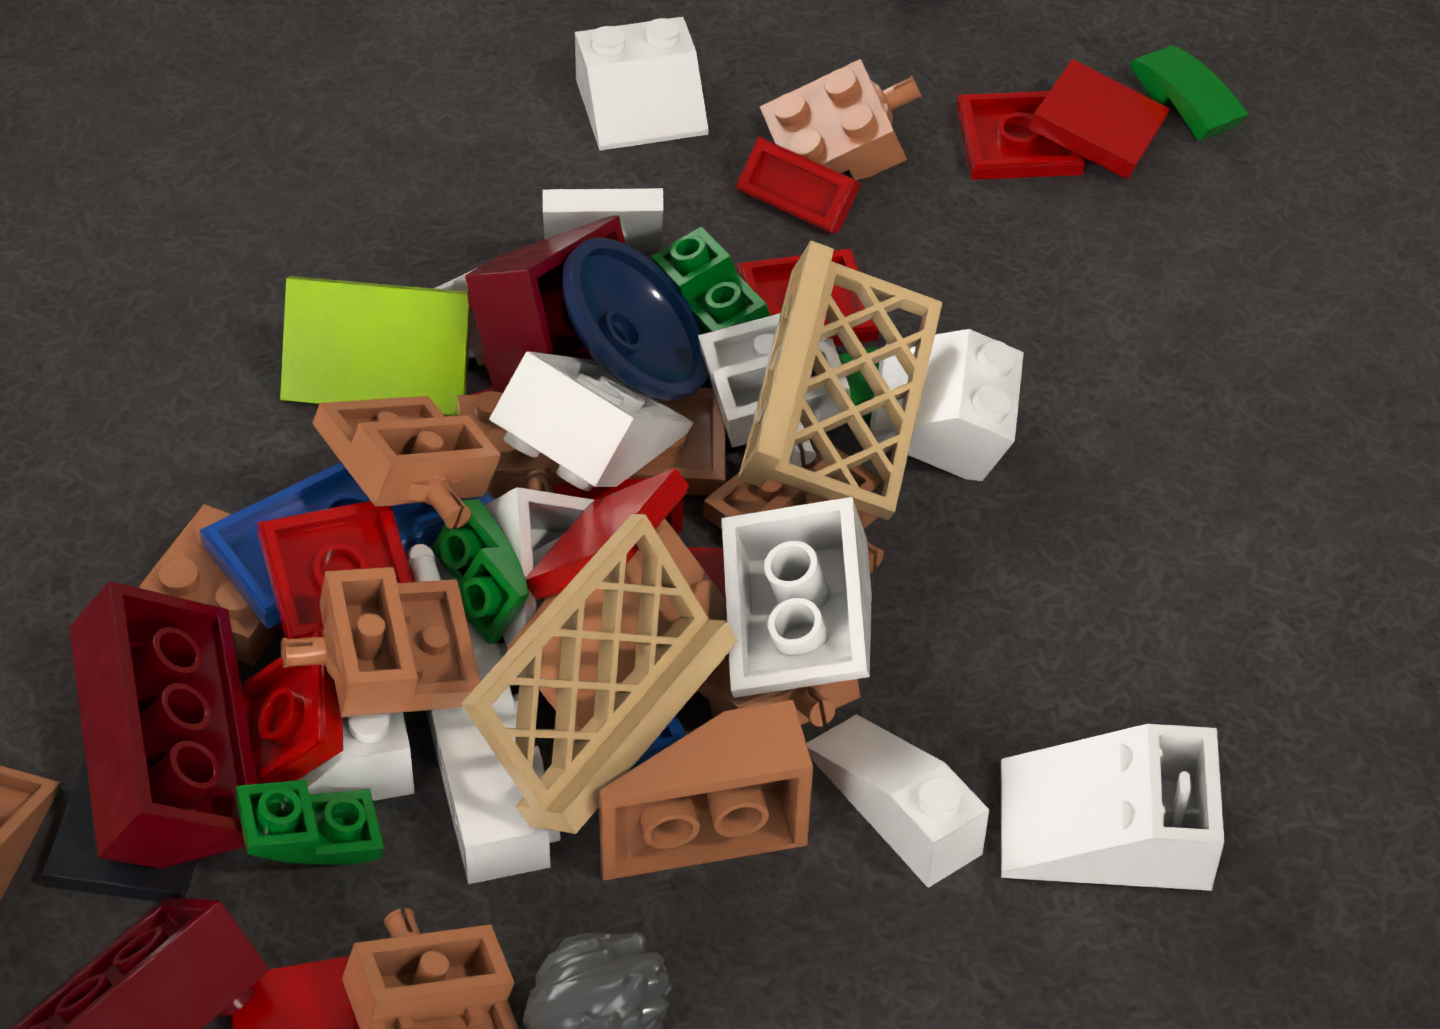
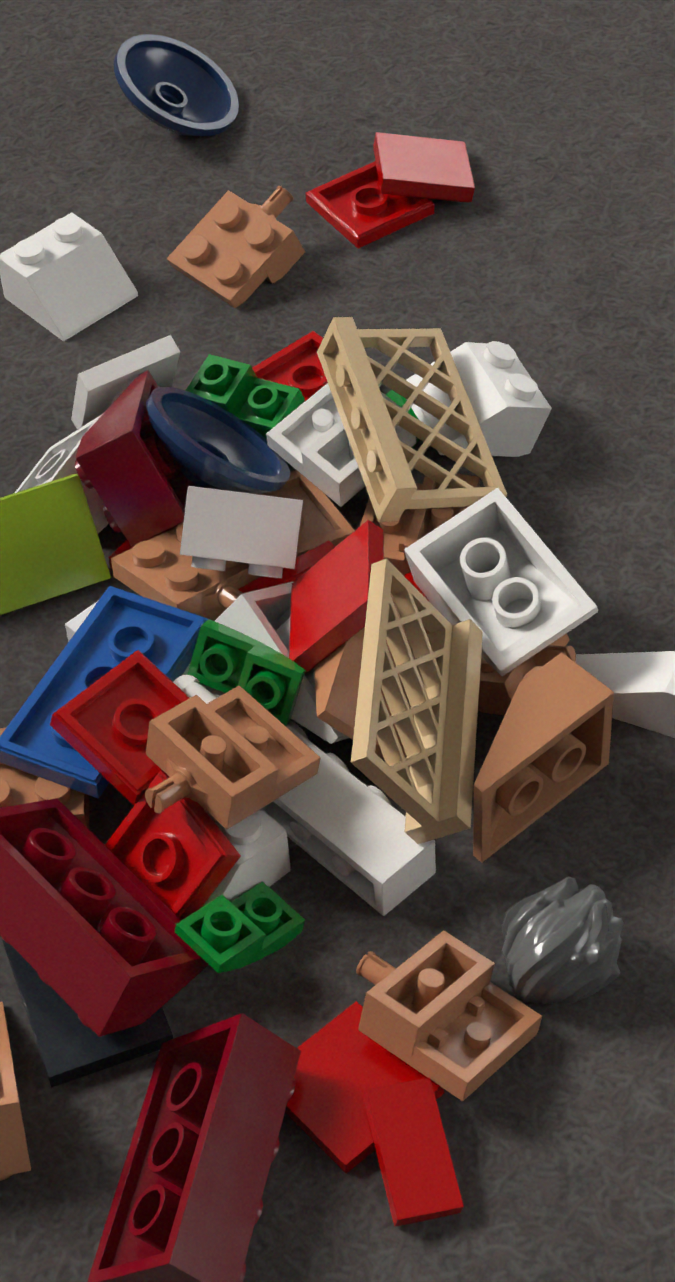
camera: 25 degrees left, 0 degrees up
(410, 453) = (133, 608): nougat plate -> none
(798, 185) = (241, 301): red tile -> none
(1195, 91) = (452, 117): green slope -> none

